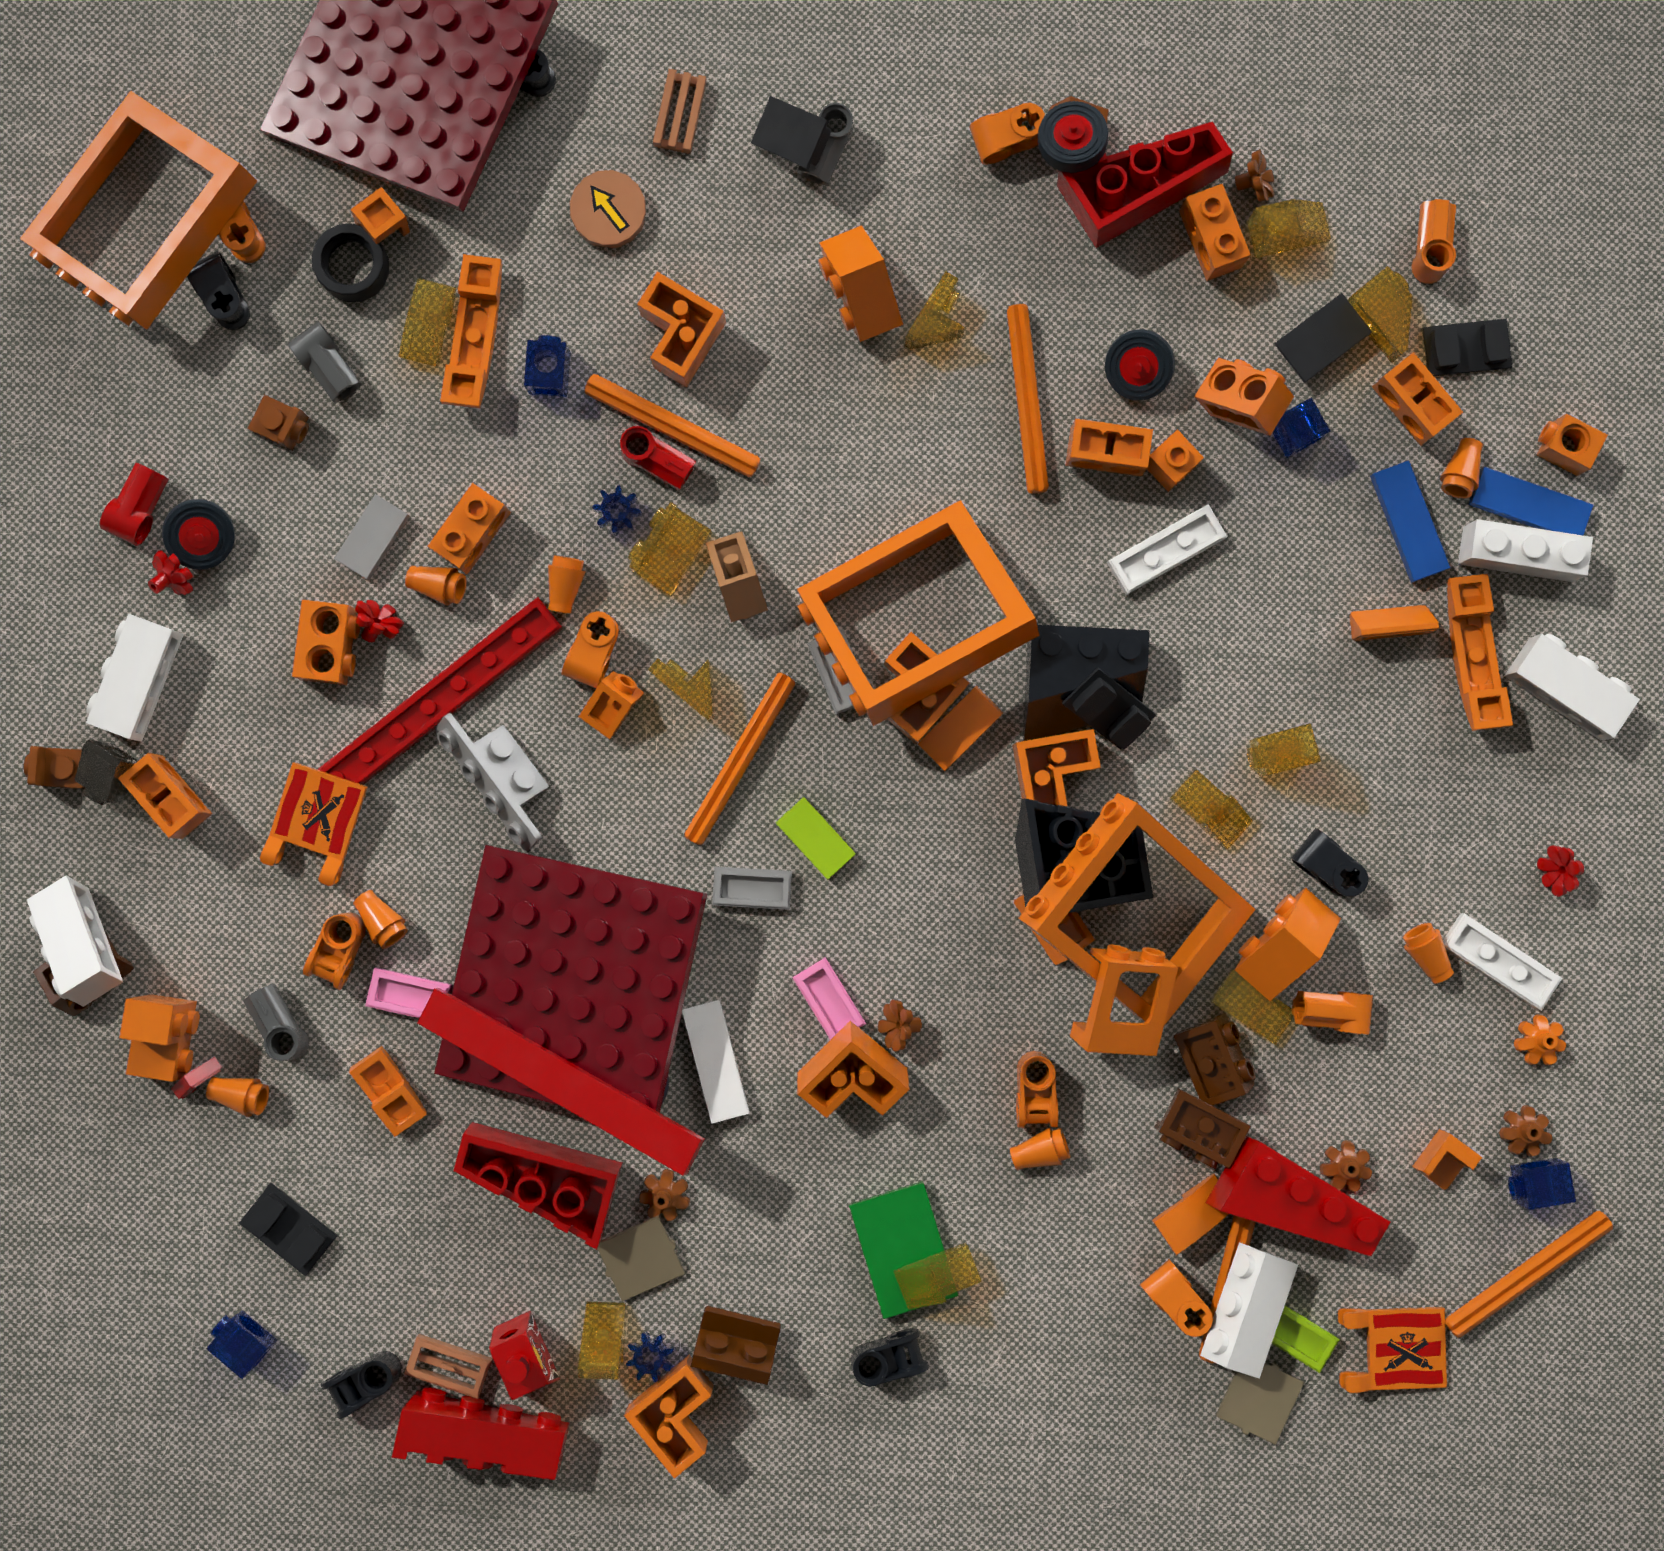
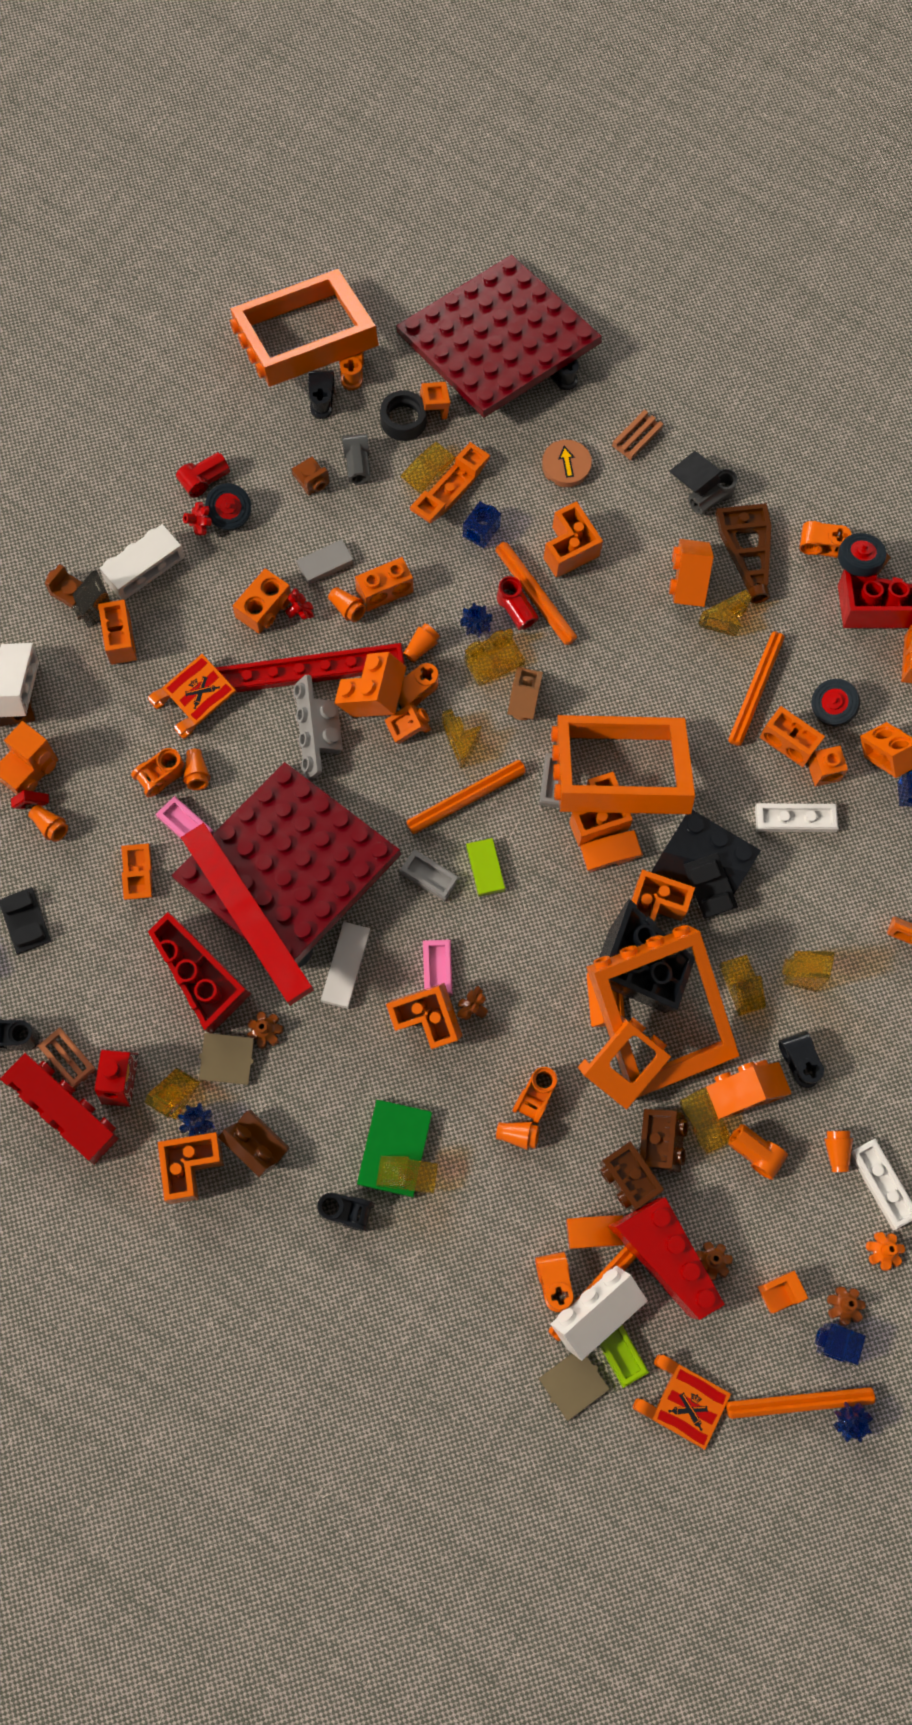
camera: 25 degrees right, 15 degrees down
(273, 1021) = (97, 793): dark grey piece -> none
(548, 687) = (376, 691): none -> orange brick
(886, 164) = (746, 520): none -> reddish brown plate
(1600, 1265) = (860, 1418): none -> clear blue gear

